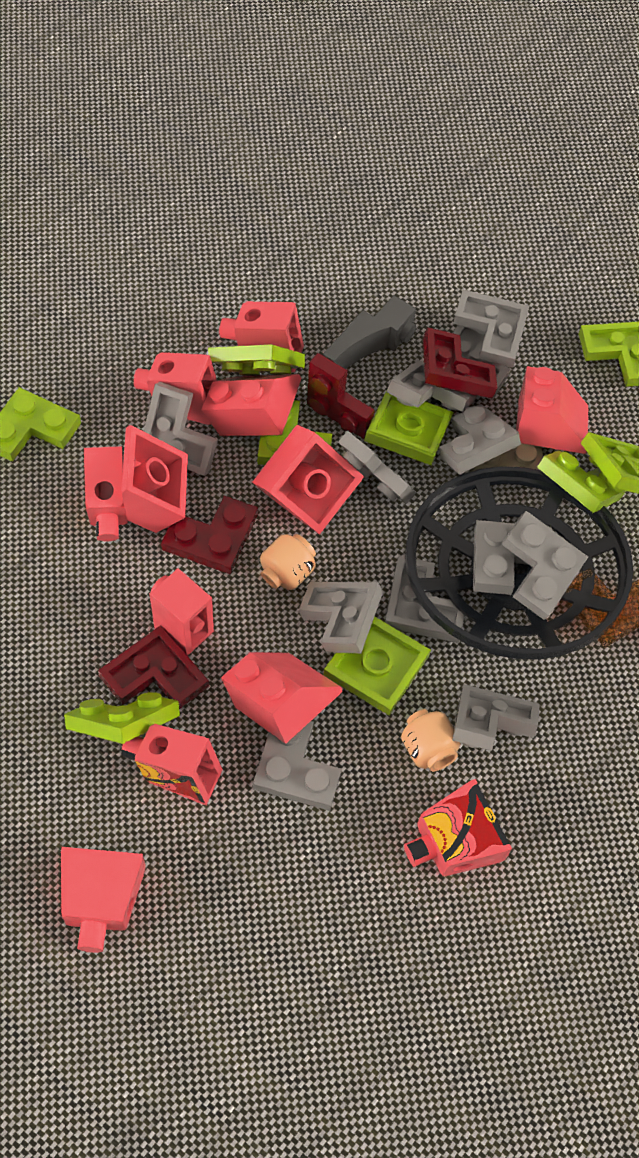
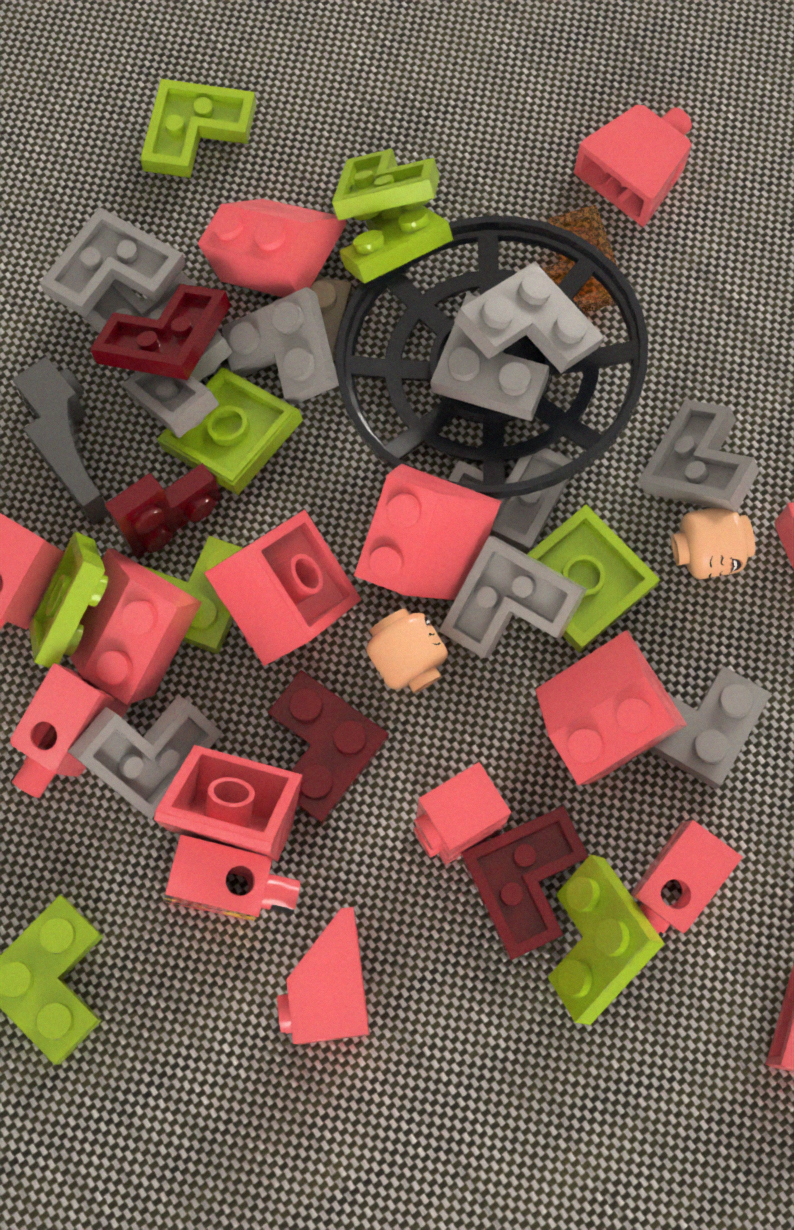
camera: 70 degrees left, 10 degrees up
(56, 562) = (327, 987): none -> coral slope
(369, 464) = (284, 499): light grey plate -> none
(369, 544) = (425, 535): none -> coral slope

